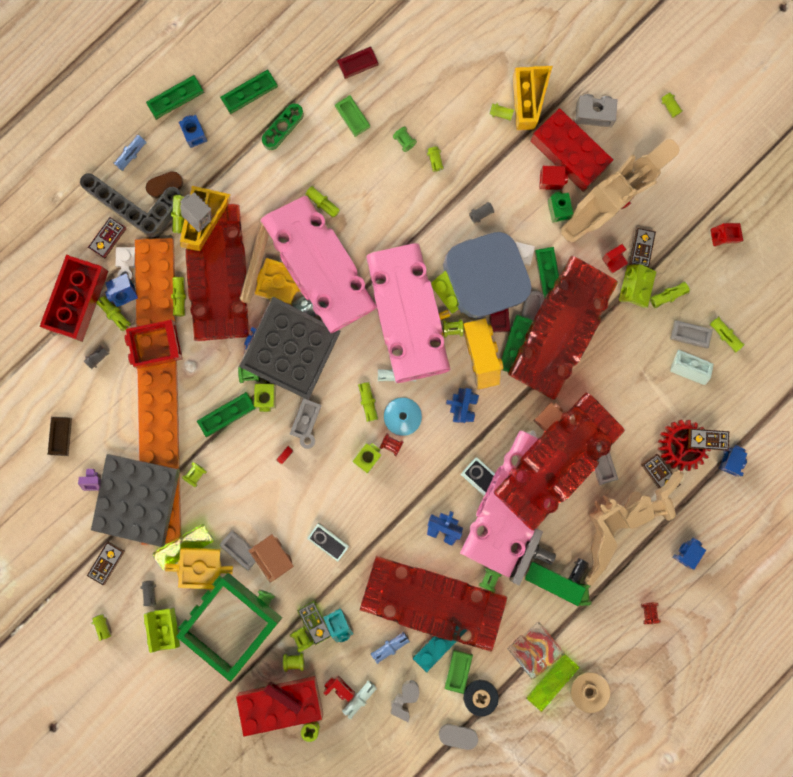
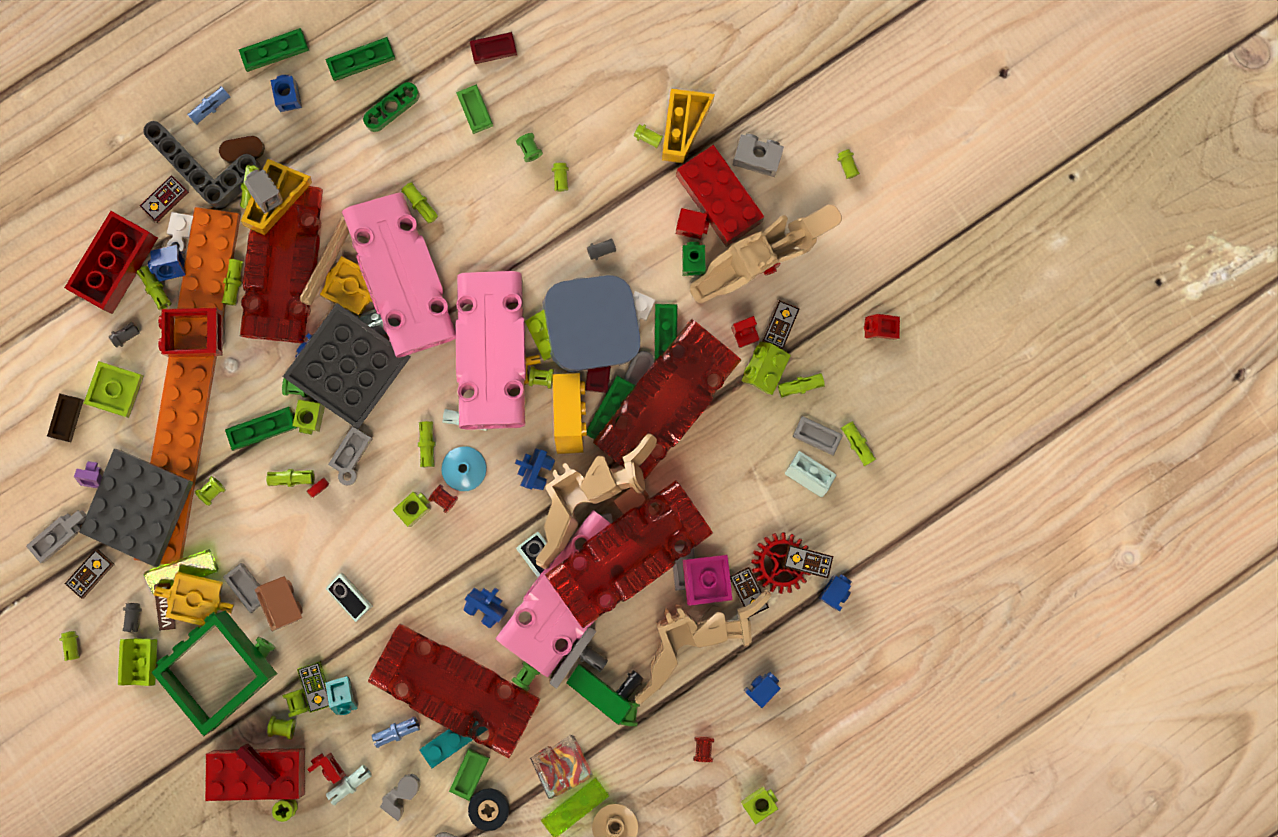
camera: 10 degrees right, 0 degrees up
(71, 536) = (56, 536): none -> light grey hinge
(96, 404) = (113, 389): none -> lime plate
(173, 581) = (161, 606): none -> reddish brown sticker
(259, 451) = (290, 478): none -> lime pin
(502, 415) = (598, 485): none -> tan piece
(626, 471) = (707, 580): none -> dark pink plate
(698, 650) = (758, 815): none -> lime brick

